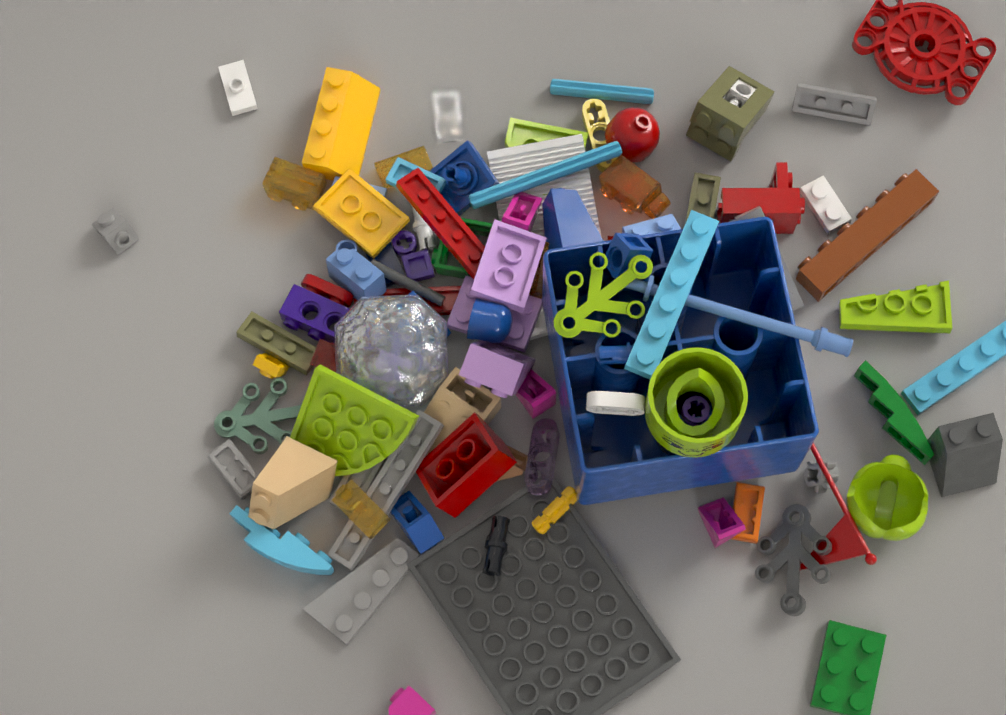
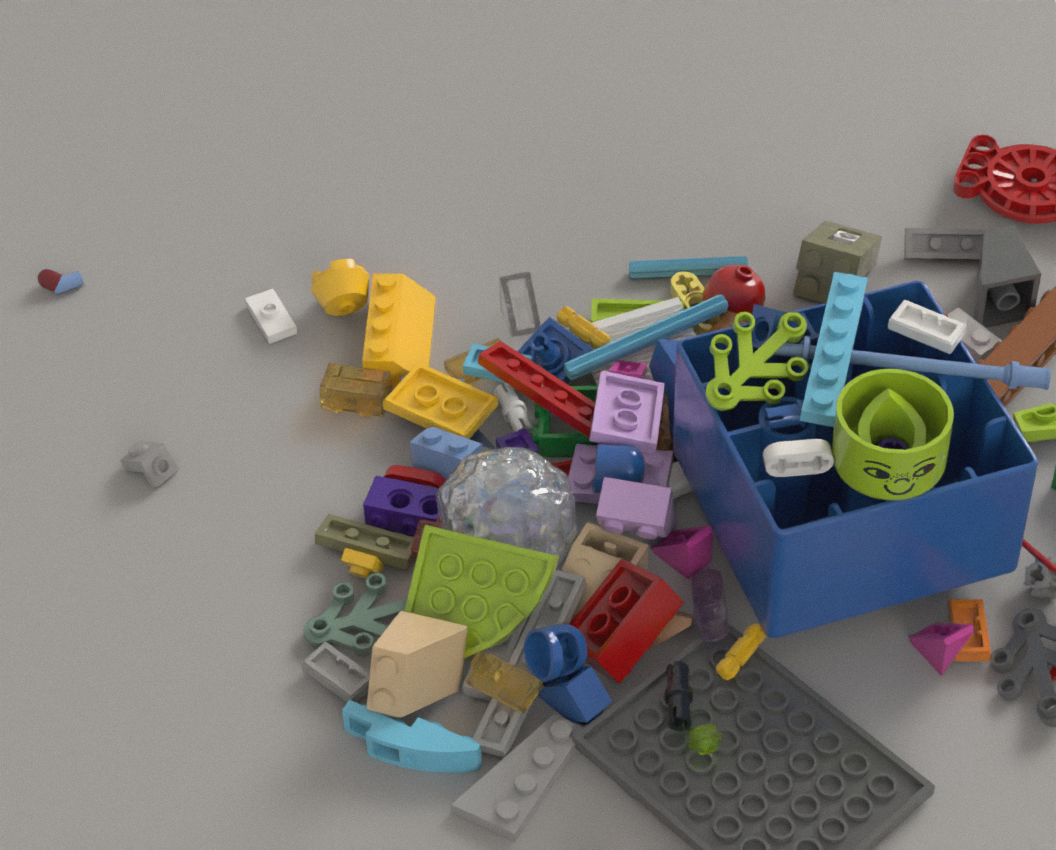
camera: 10 degrees left, 25 degrees down
(63, 22) = (57, 282): none -> arm
(298, 75) = (341, 288): none -> yellow cone
(403, 496) = (555, 651): none -> blue helmet
(409, 237) = (495, 427): dark purple bush -> none
(494, 156) = (582, 327): none -> yellow axle
(508, 590) = (704, 738): none -> clear neon green plate
(759, 276) = (927, 326): none -> white plate
(869, 158) = (1005, 278): none -> dark grey slope

